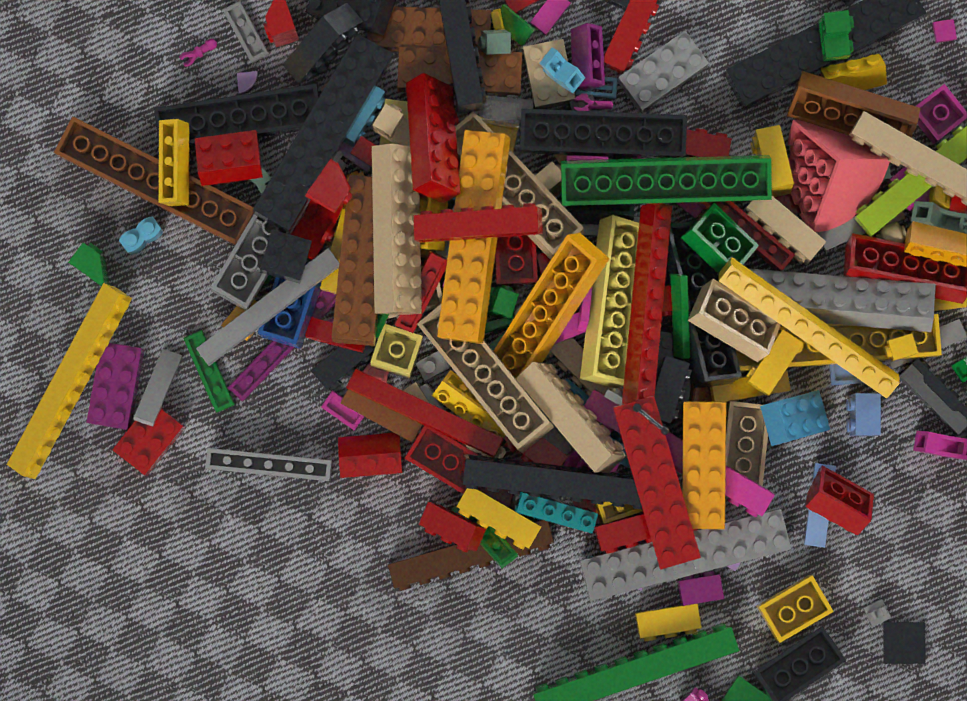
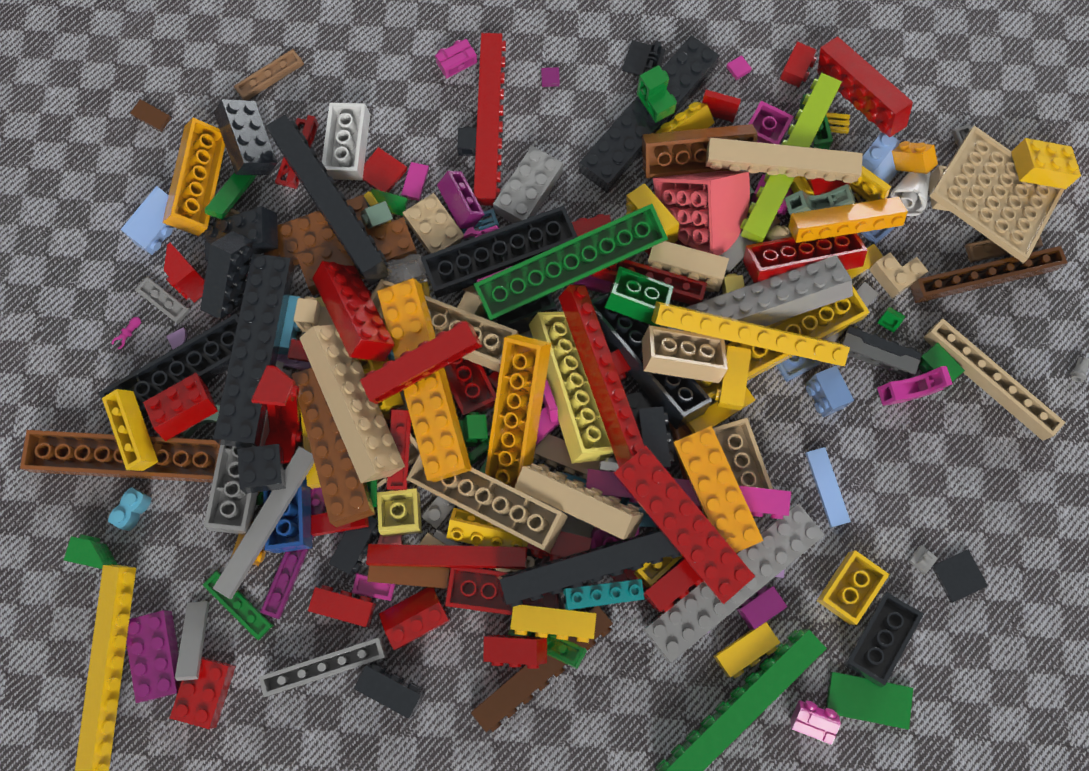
camera: 20 degrees left, 10 degrees down
(307, 415) = (342, 606): none -> red brick
(322, 512) = (390, 690): none -> black brick
(561, 71) = (442, 215): medium azure brick -> none
(637, 408) = (636, 462): black hinge -> none
(680, 316) = (634, 371): green tile -> none
(795, 417) = (772, 418): dark azure brick -> none
(823, 264) = (732, 282): none -> light yellow brick
(840, 501) = (845, 475): red slope -> none
(900, 347) = (834, 319): yellow brick -> none
(901, 69) = (721, 105): none -> red tile

